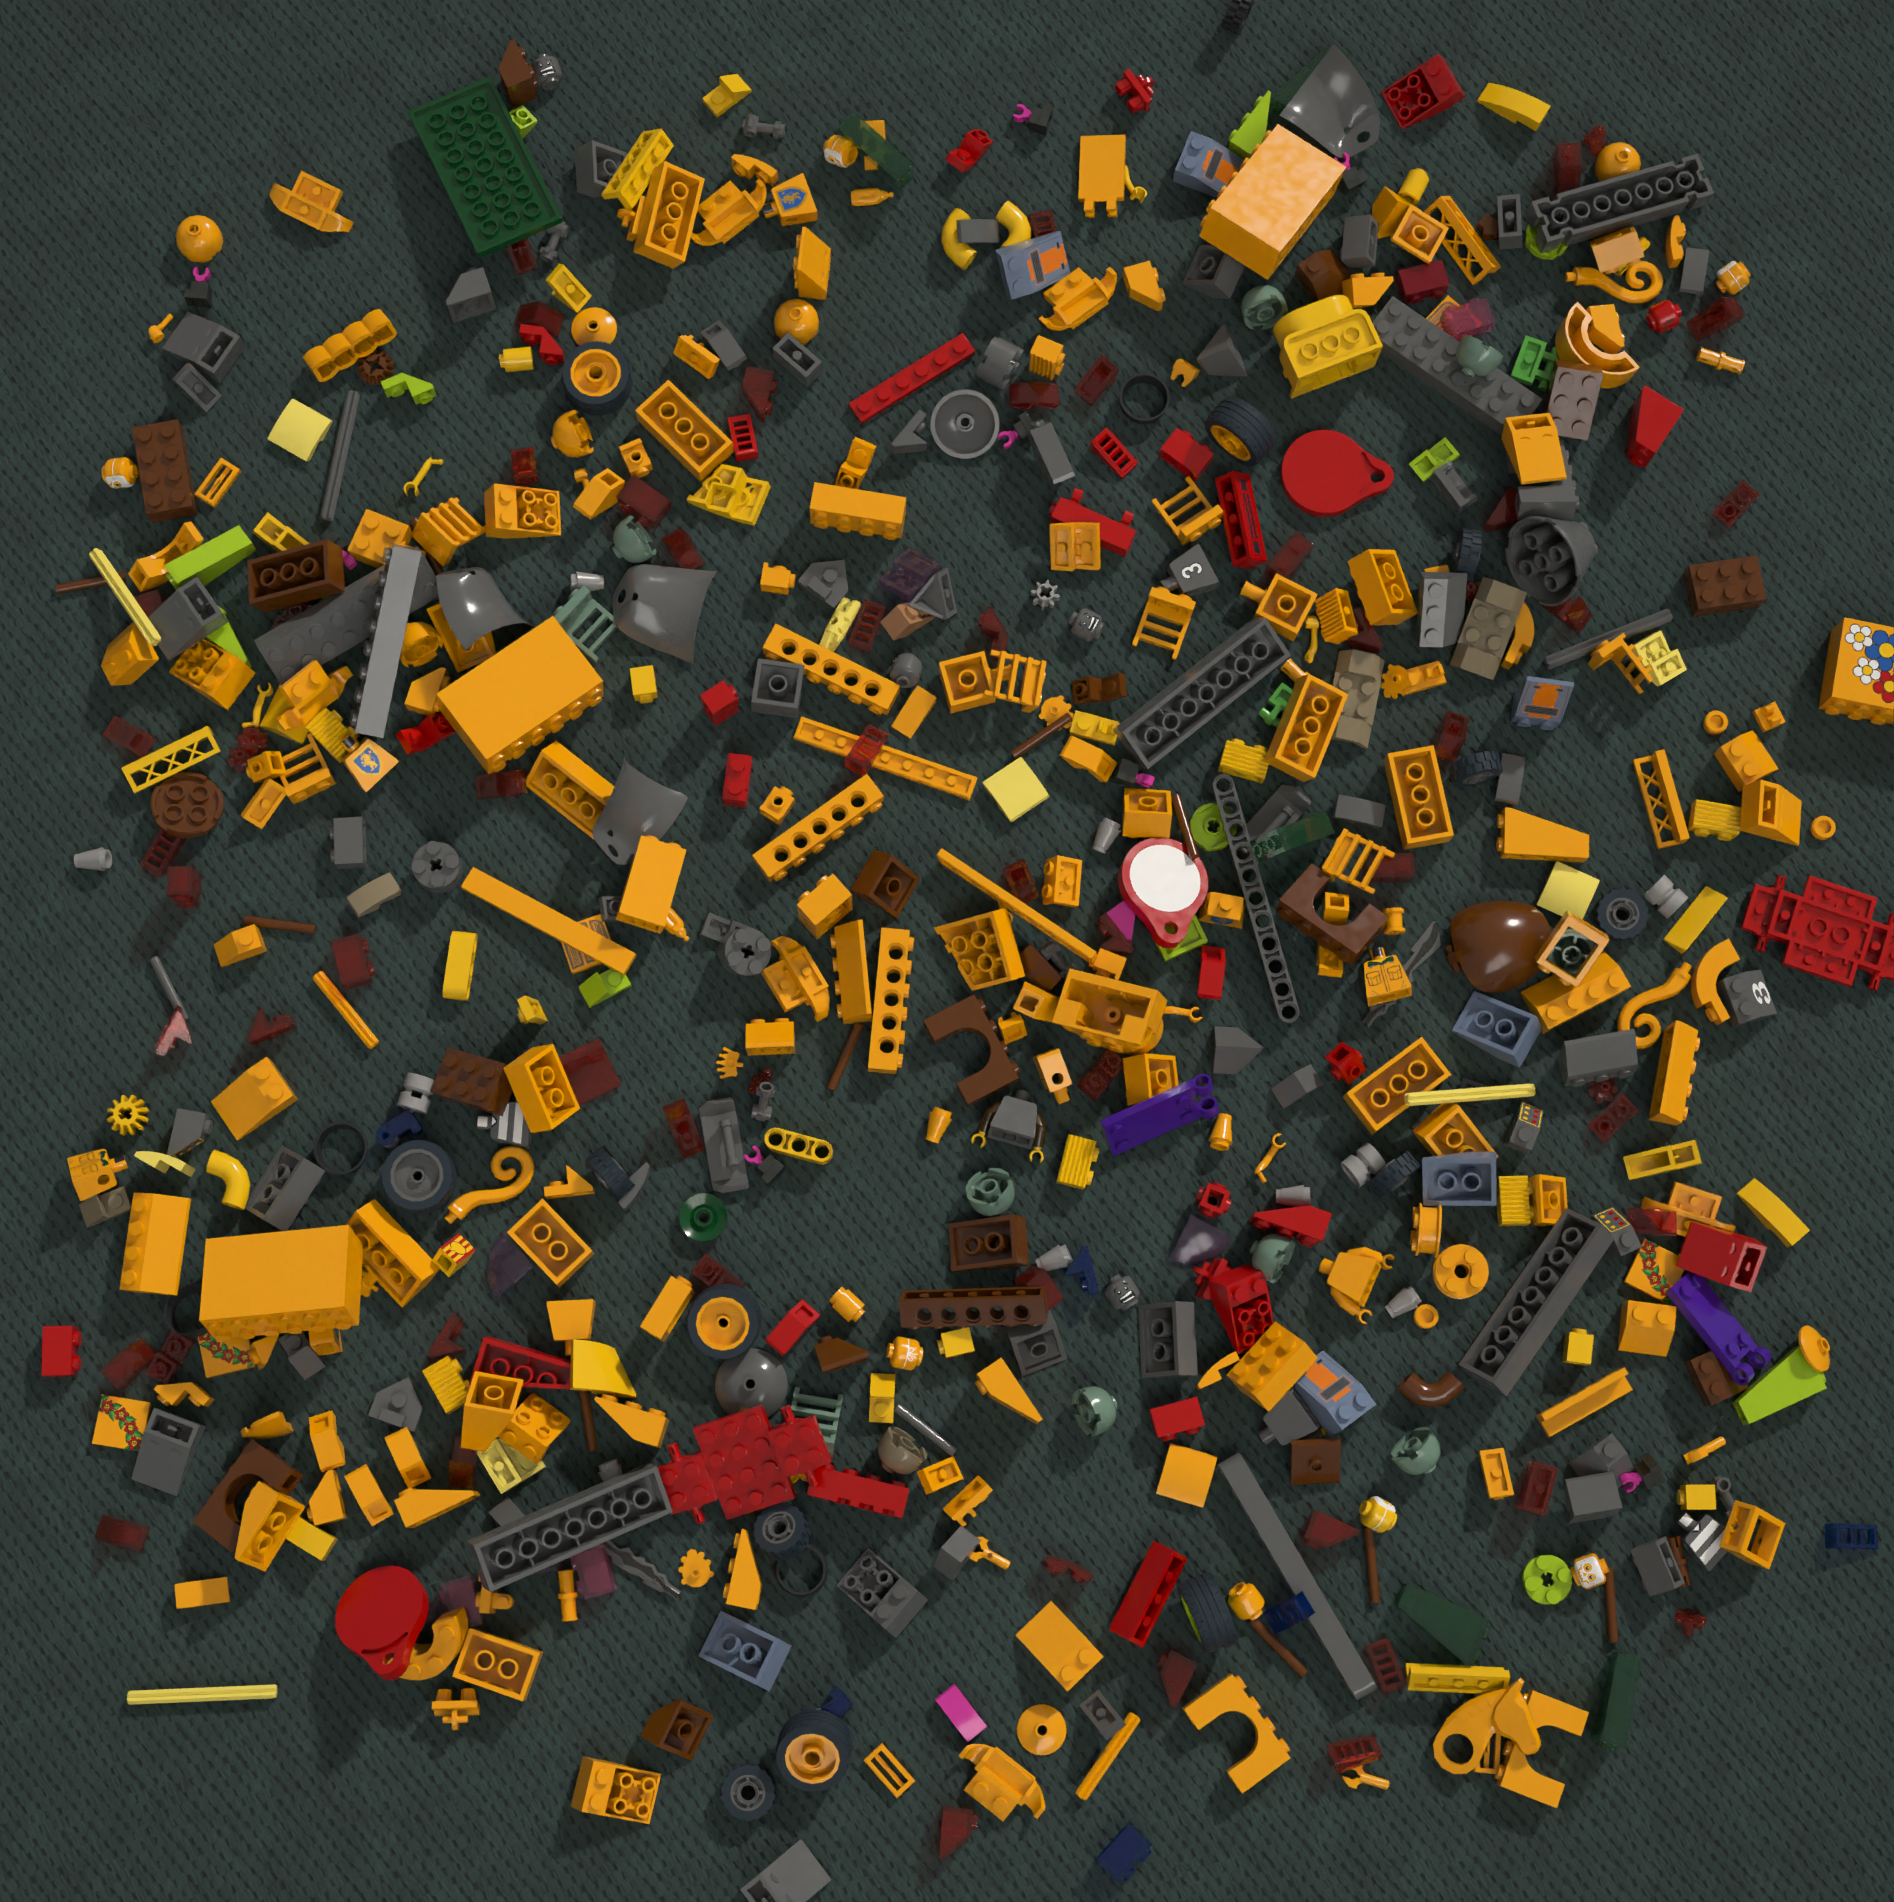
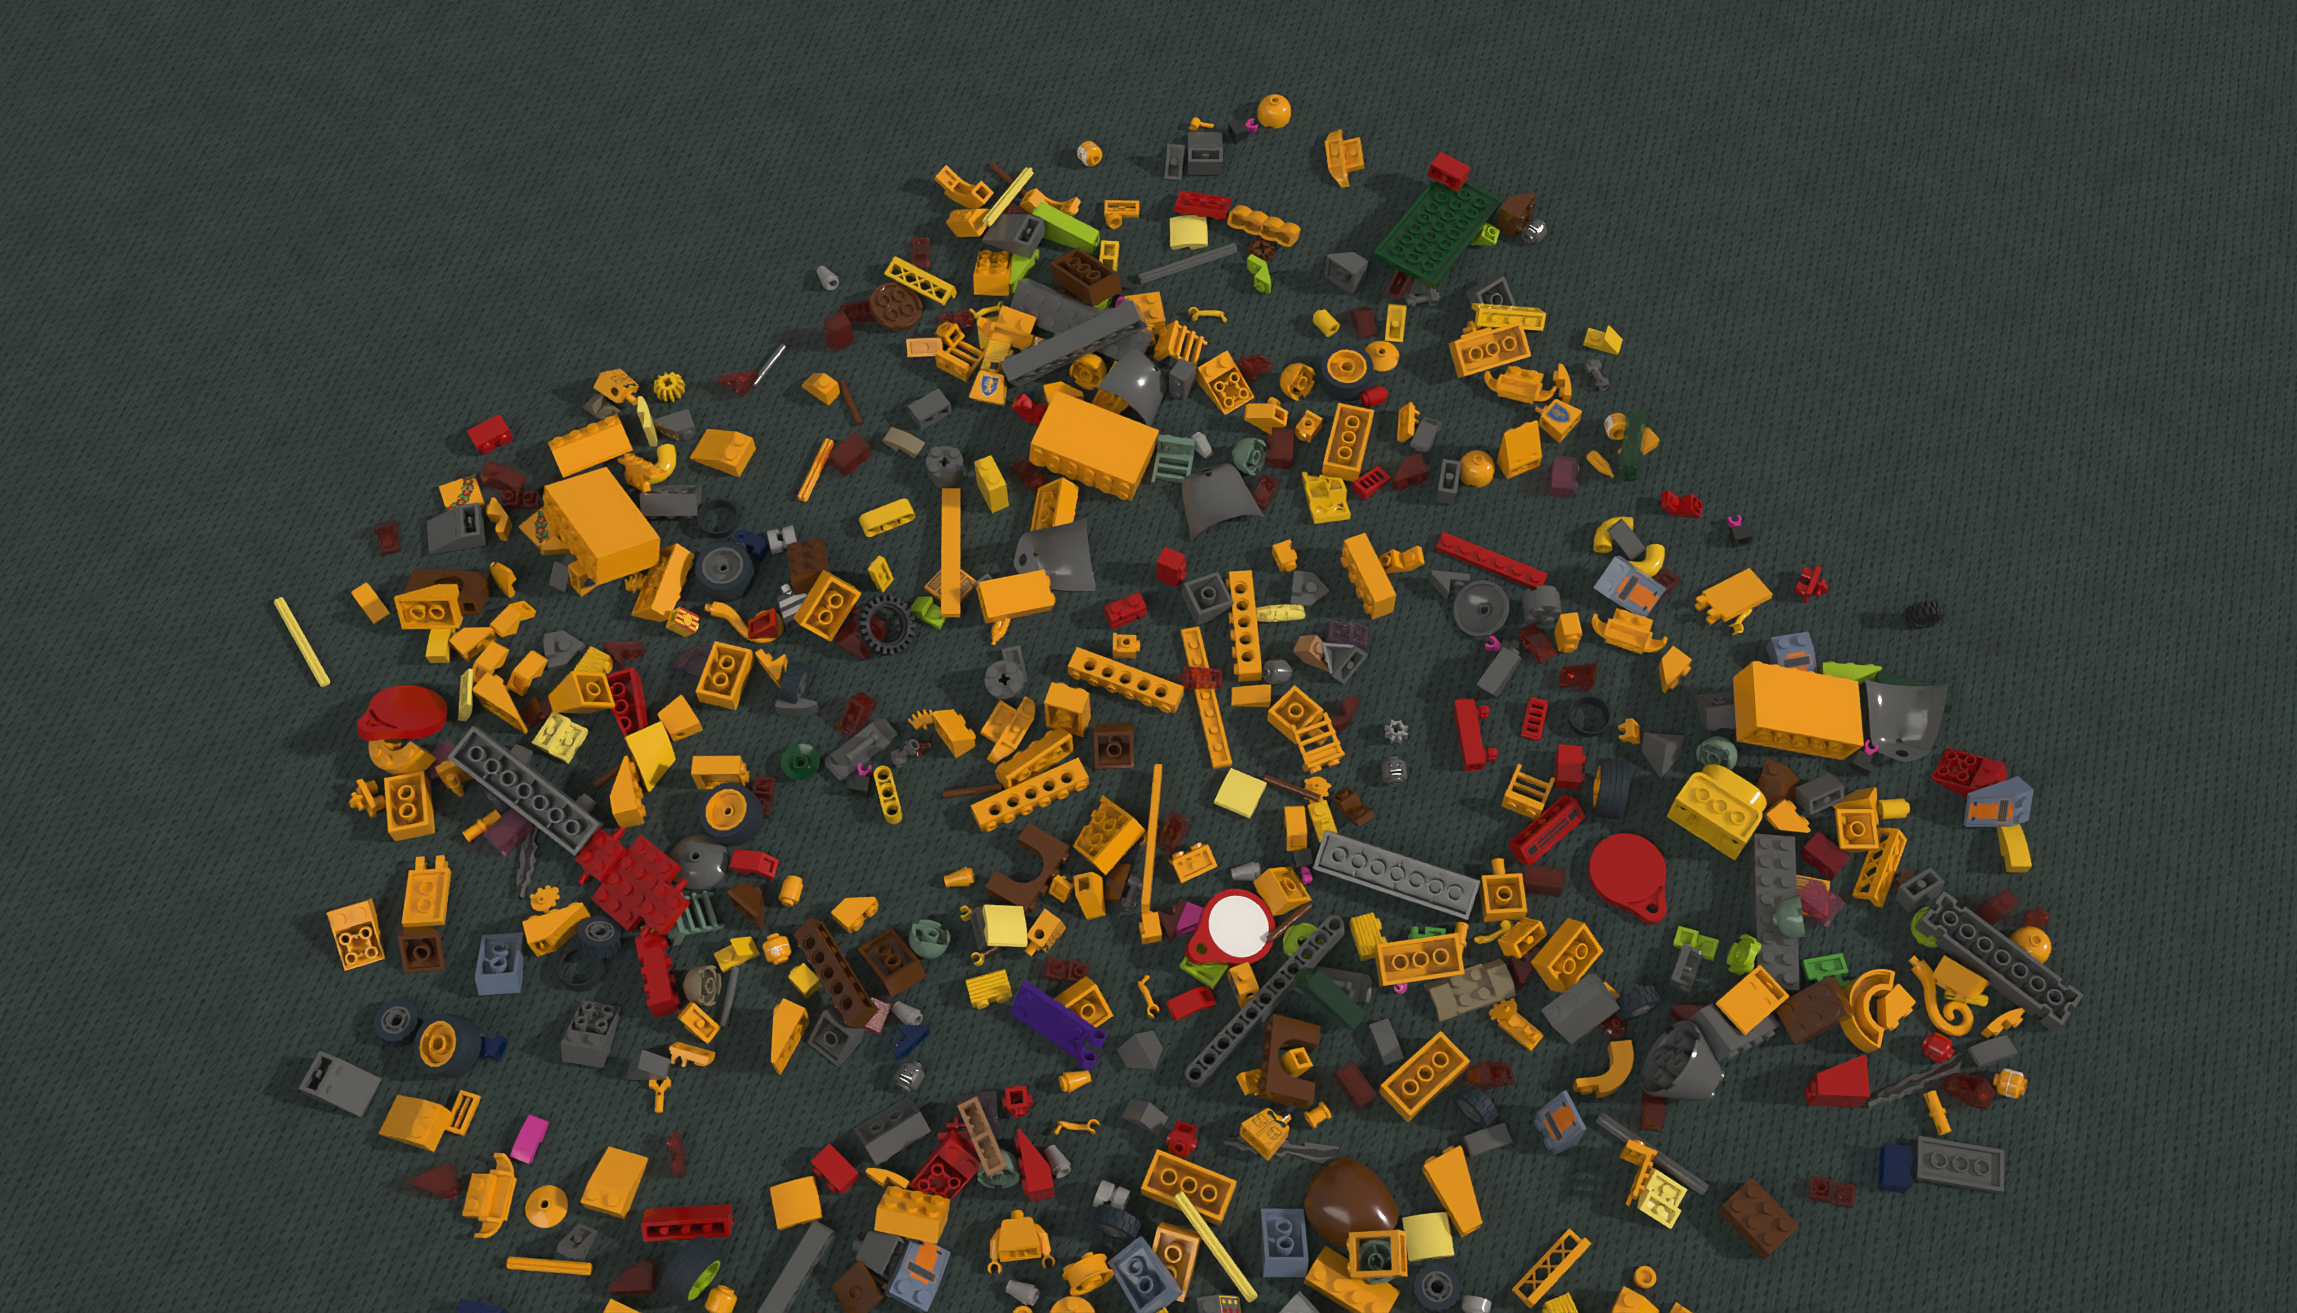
camera: 65 degrees right, 15 degrees down
(87, 638) = (963, 193): none -> light orange arch
(164, 471) = (1107, 175): reddish brown brick -> none
(228, 500) = (1114, 220): none -> light orange plate
(230, 1203) = (640, 471): none -> light orange bracket
(264, 1030) = (774, 430): clear red slope -> none
(276, 392) = (1202, 205): none -> red plate
(399, 1538) = (466, 695): none -> light yellow slope
(421, 108) = (1449, 171): none -> red brick
(495, 553) = (1182, 379): none -> dark grey brick
(497, 830) = (991, 484): none -> yellow brick
(515, 1170) = (763, 625): none -> red slope
(534, 1428) = (589, 736): light orange bracket -> none
(549, 349) = (1347, 333): red slope -> none
(583, 1054) = (864, 629): none -> black tyre
(618, 1693) = (427, 894): none -> light orange tile
(642, 368) = (1373, 396): none -> red brick
(644, 684) = (1155, 517): yellow brick -> none
(863, 243) = (1563, 477): none -> clear pink brick
(873, 1825) = (416, 1122): none -> light orange slope
(874, 607) = (1304, 622): clear red slope -> none
(910, 1254) = (854, 911): none -> light orange slope
(1028, 1107) = (1005, 925): none -> light yellow slope
(1075, 546) = (1445, 729): light orange slope -> none
(1095, 1408) = (809, 1105): sand green cylinder -> none
(1111, 1013) = (1111, 945): light orange brick -> none
(1168, 608) = (1446, 820): light orange plate -> none
(1190, 574) = (1481, 819): dark grey torso -> none
(1238, 1254) = (982, 1136): none -> medium nougat slope
(1341, 854) = (1341, 1048): light orange plate -> none
(1475, 87) = (1999, 804): none -> sand blue slope
(1478, 415) = (1743, 954): none -> lime plate
(1488, 628) = (1591, 1053): dark tan piece -> none
(1680, 357) = (1915, 1081): none -> dark grey sword
(1748, 434) = (1895, 1168): none -> clear blue brick
(1777, 376) = (1959, 1164): none -> dark grey plate

